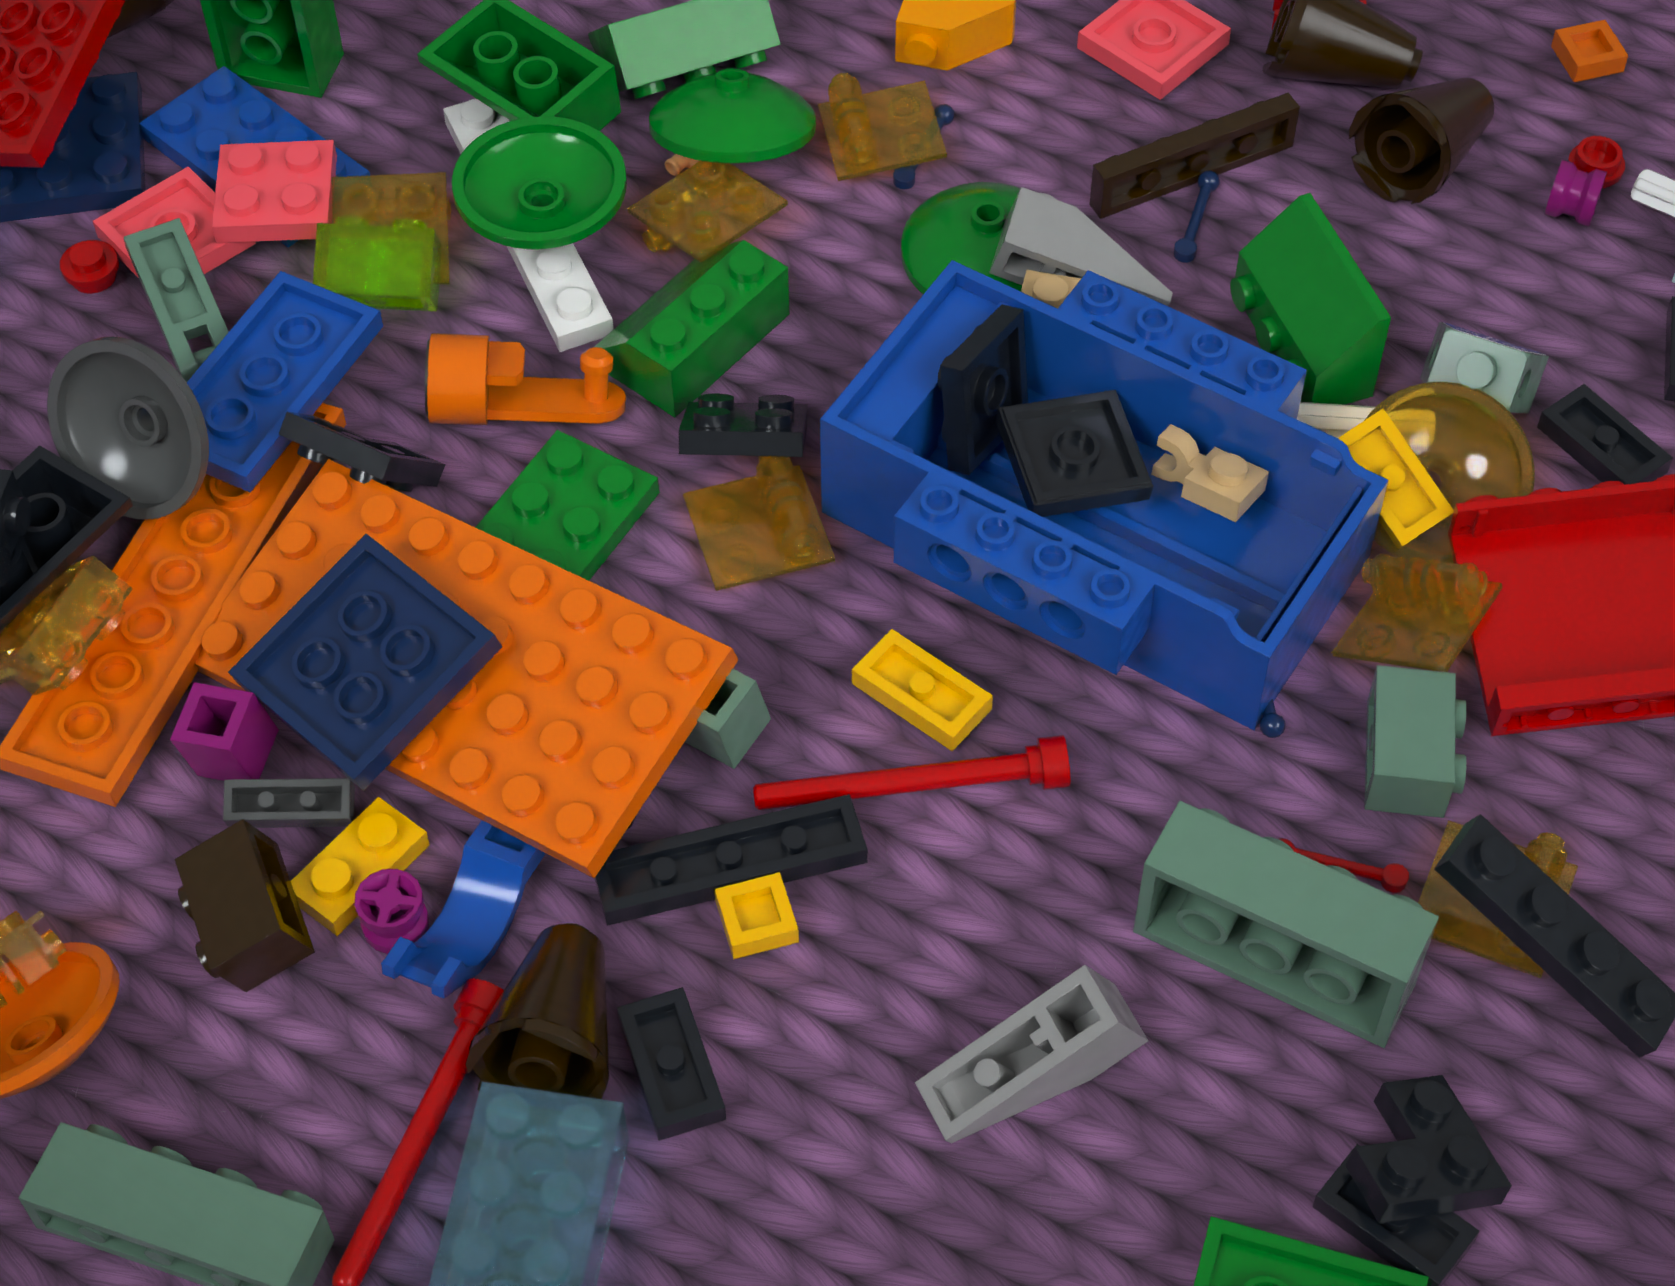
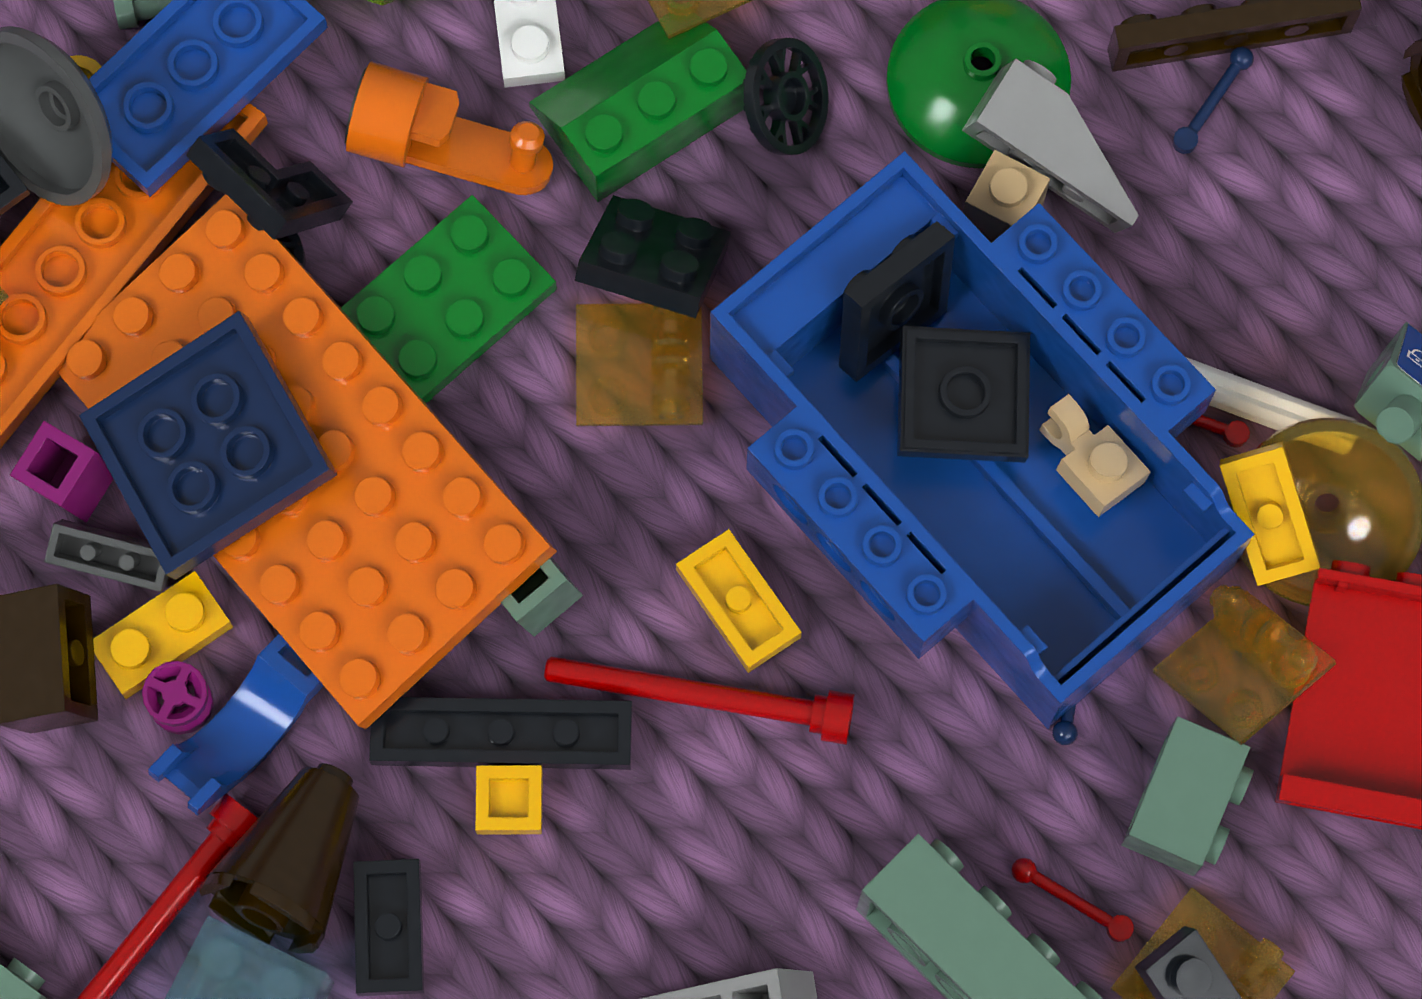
camera: 15 degrees right, 20 degrees up
(822, 283) = (786, 96): none -> black wheel
(1312, 304) = (1273, 272): green slope -> none

